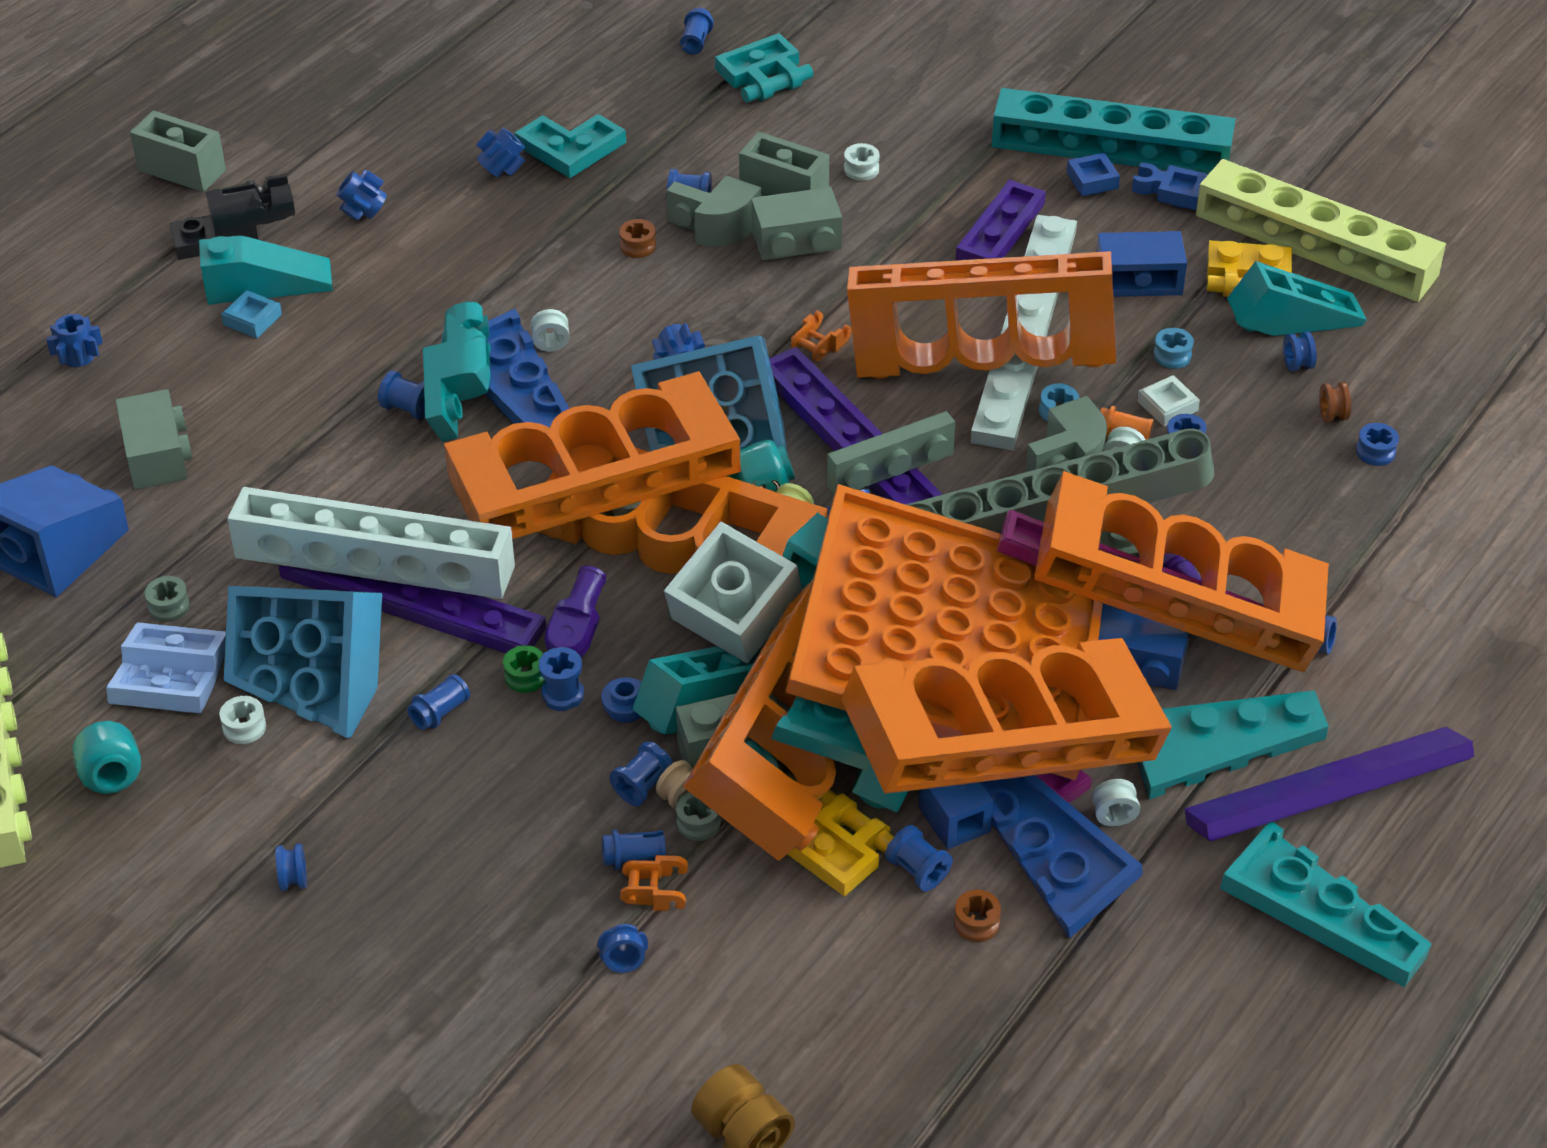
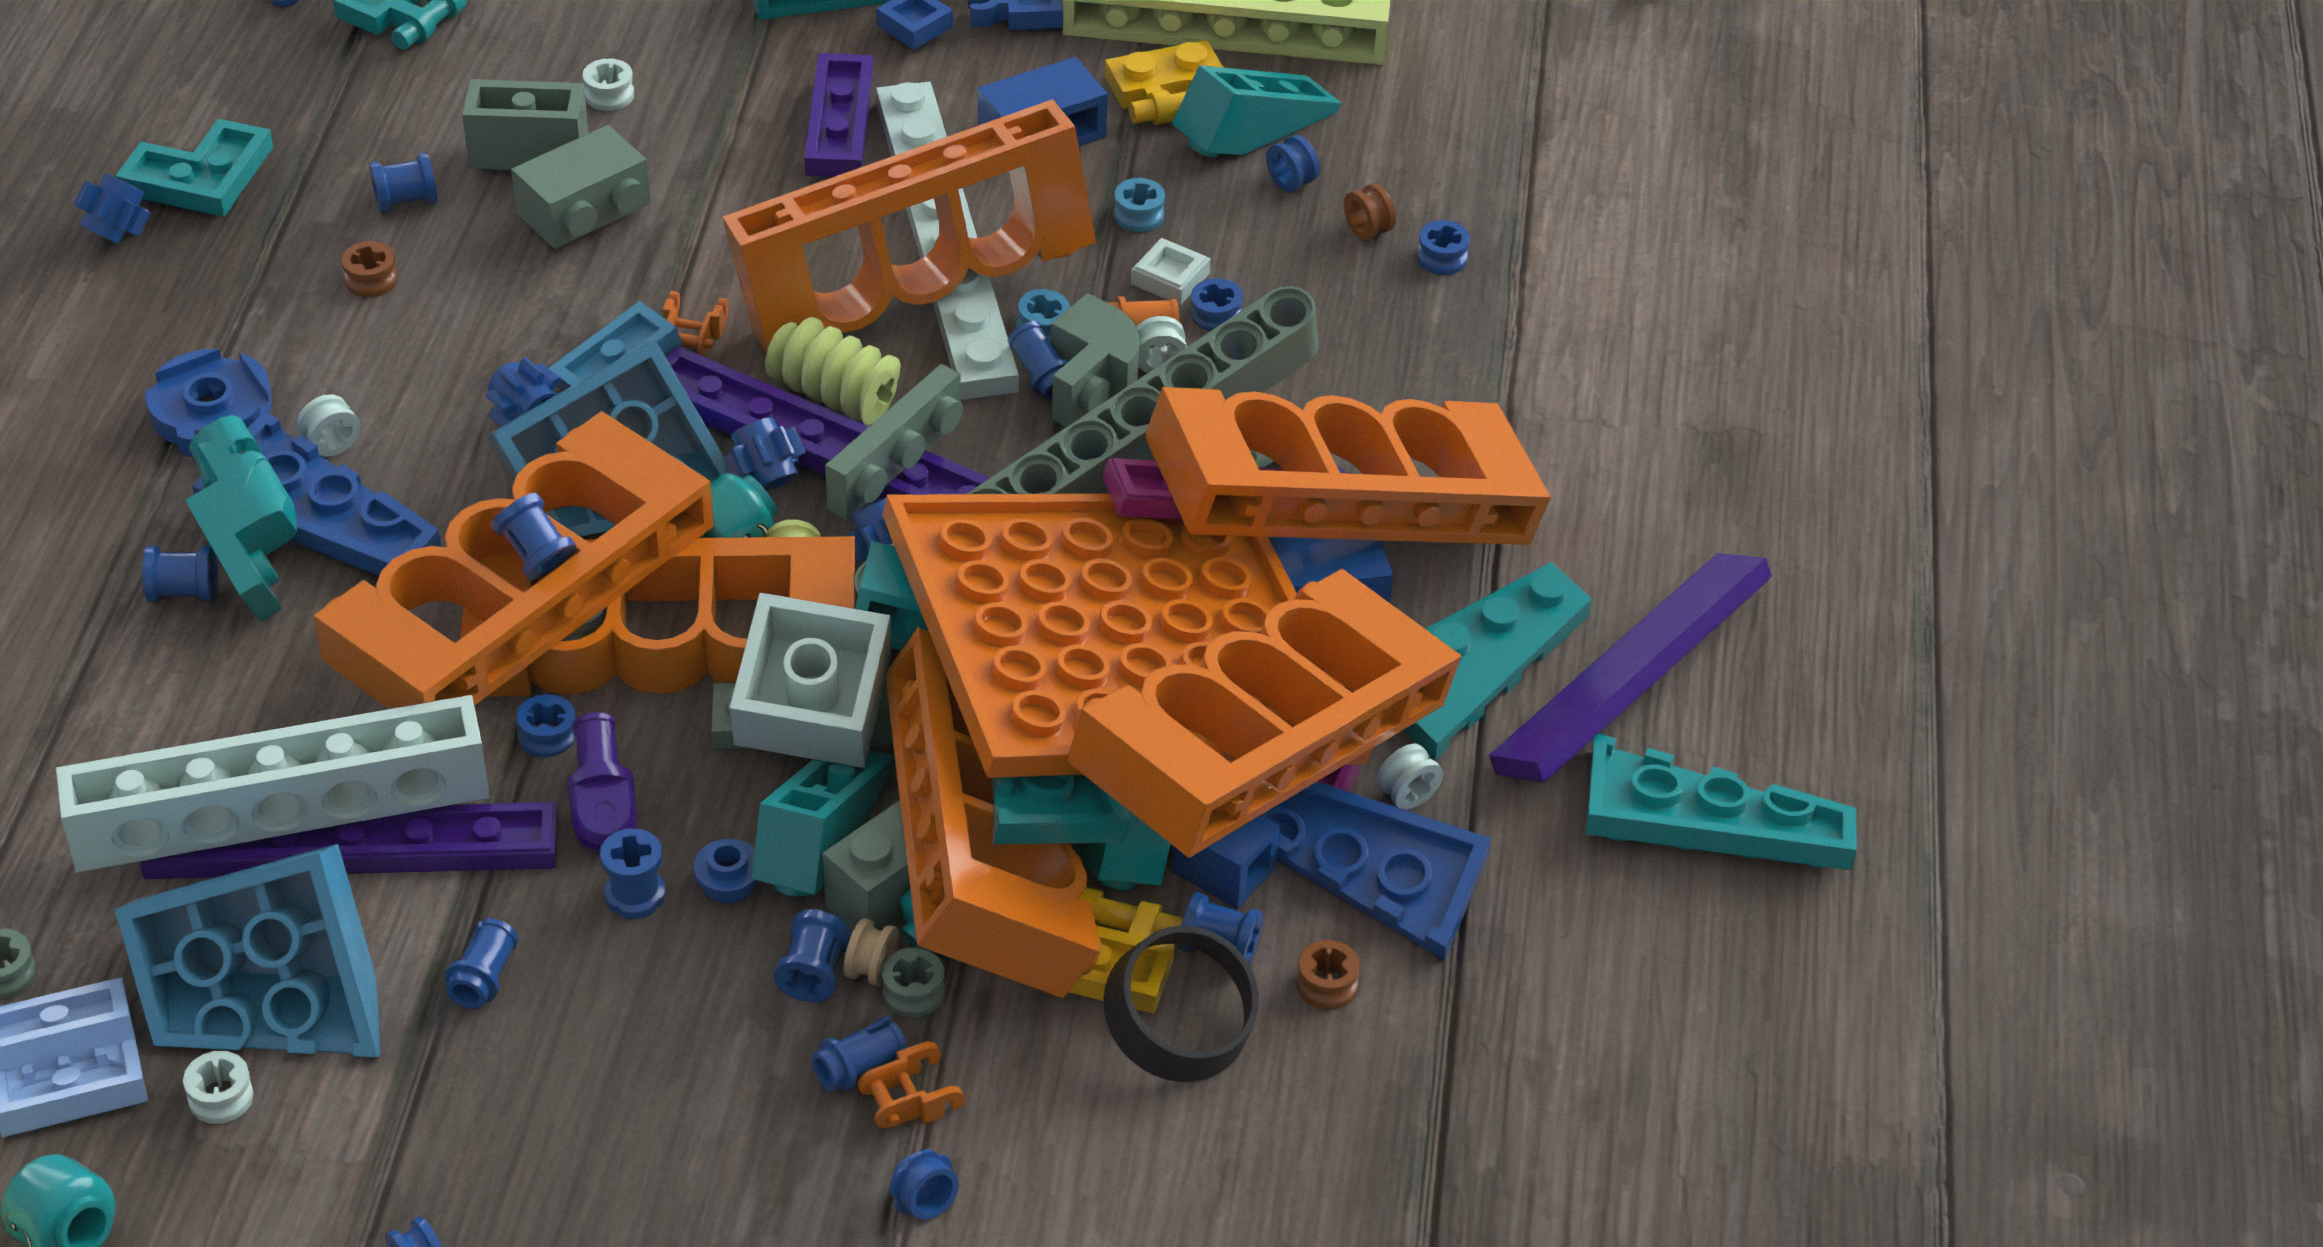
camera: 30 degrees left, 0 degrees up
(510, 286) = (235, 385): none -> blue plate
(521, 657) = (570, 896): green bush -> none
(564, 555) = (543, 739): none -> blue bush
(602, 436) = (533, 536): none -> blue bush
(716, 216) = (465, 209): sand green brick -> none
(775, 328) = (614, 341): none -> dark azure plate
(805, 436) = (765, 453): none -> blue gear
(840, 938) = (1147, 1049): none -> black tyre
(886, 391) = (833, 369): none -> yellowish green piece
(1033, 425) = (1036, 356): none -> blue pin

